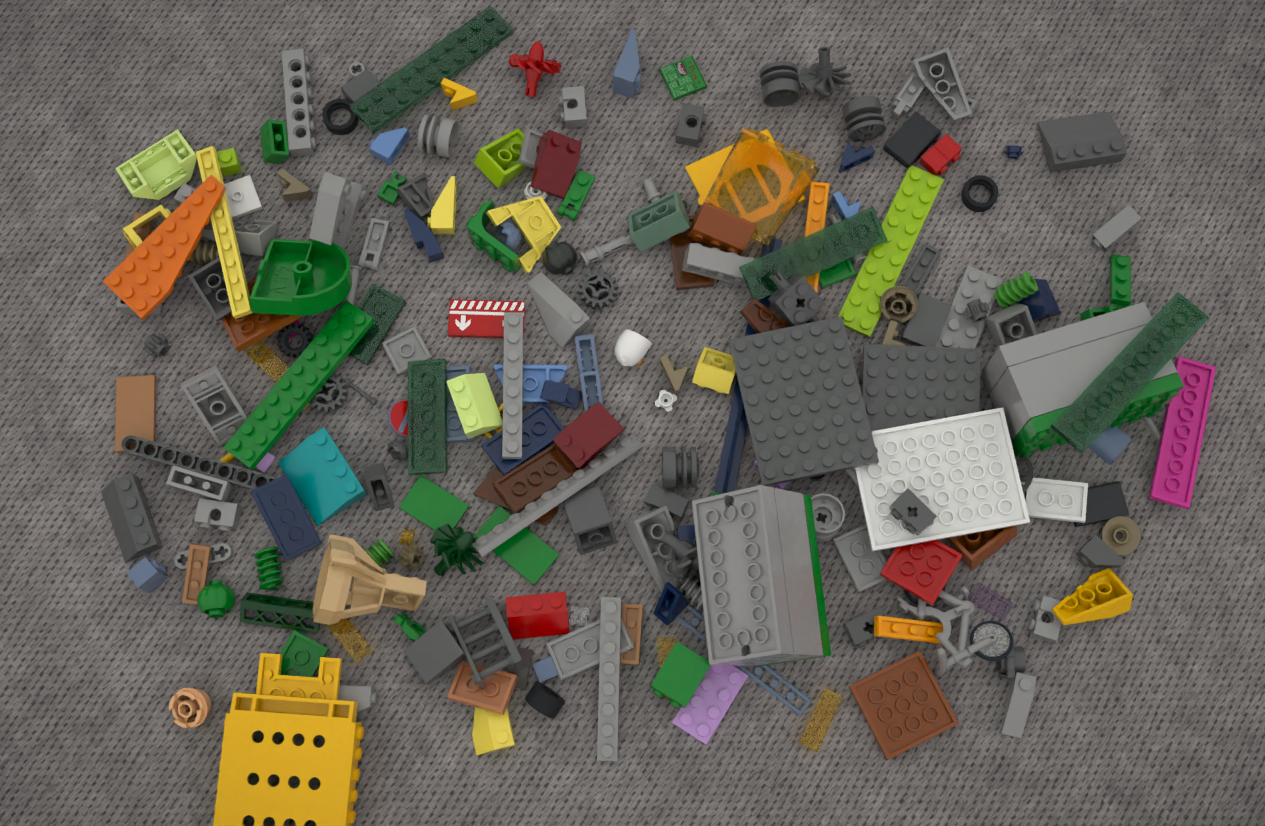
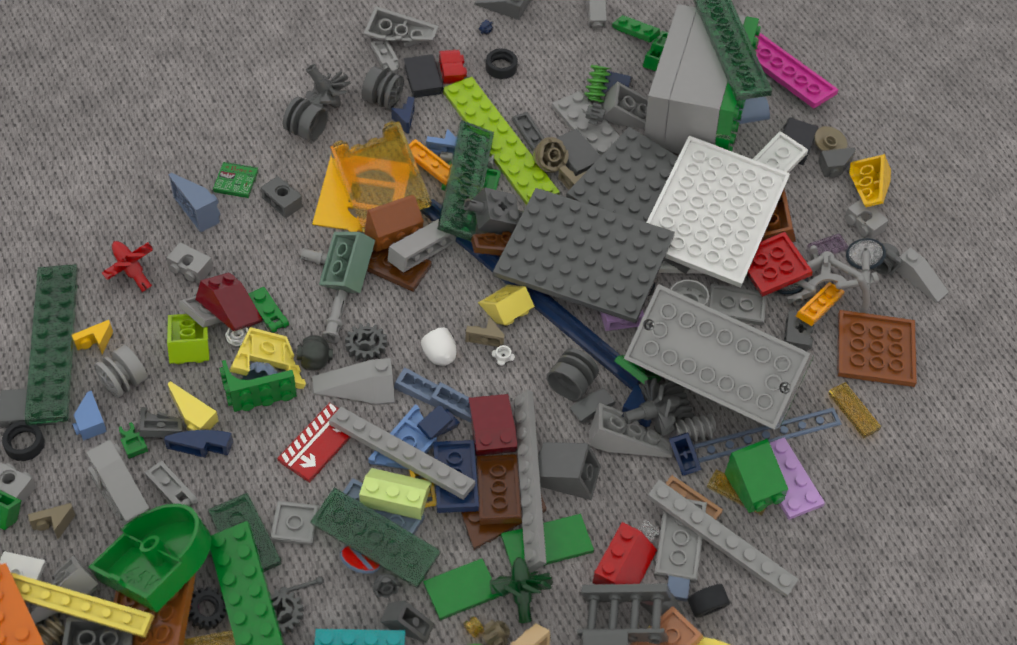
camera: 60 degrees left, 20 degrees down
(909, 501) = (732, 235): dark grey brick -> none

